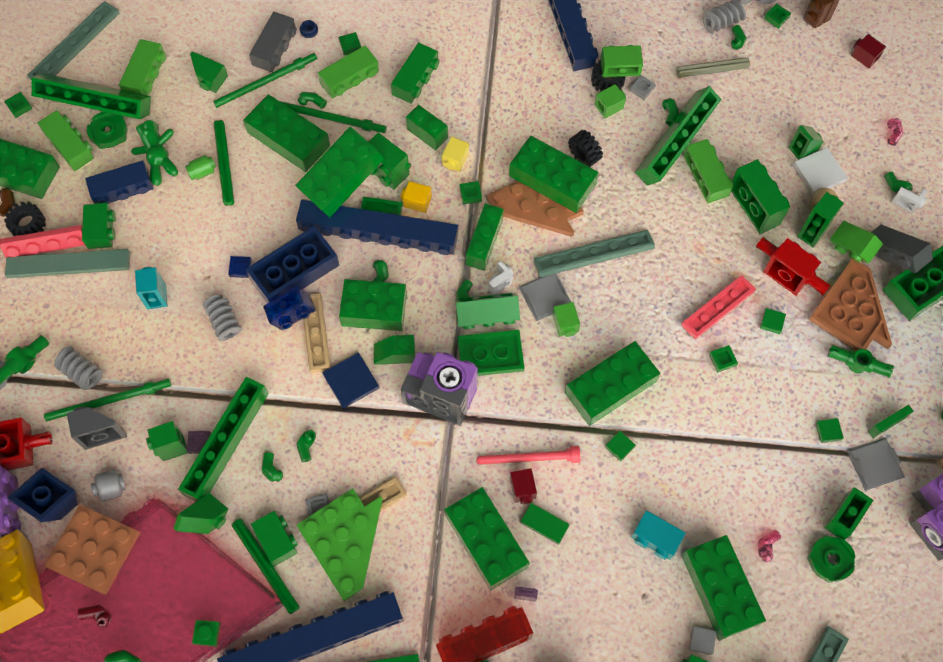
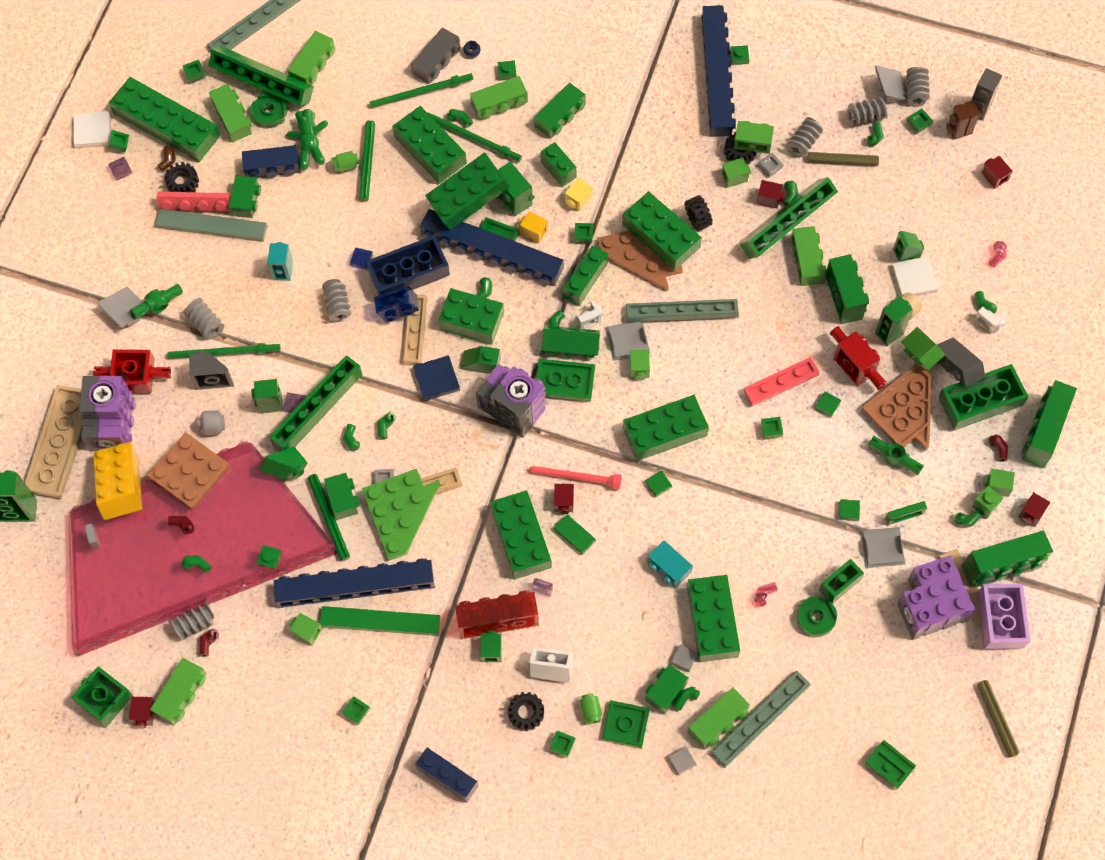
camera: 15 degrees right, 0 degrees up
(44, 497) = (158, 420): dark blue slope -> none
(208, 72) = (371, 74): green slope -> none
(651, 116) = (770, 194): none -> dark red brick
(670, 53) = (804, 137): none -> light grey piece

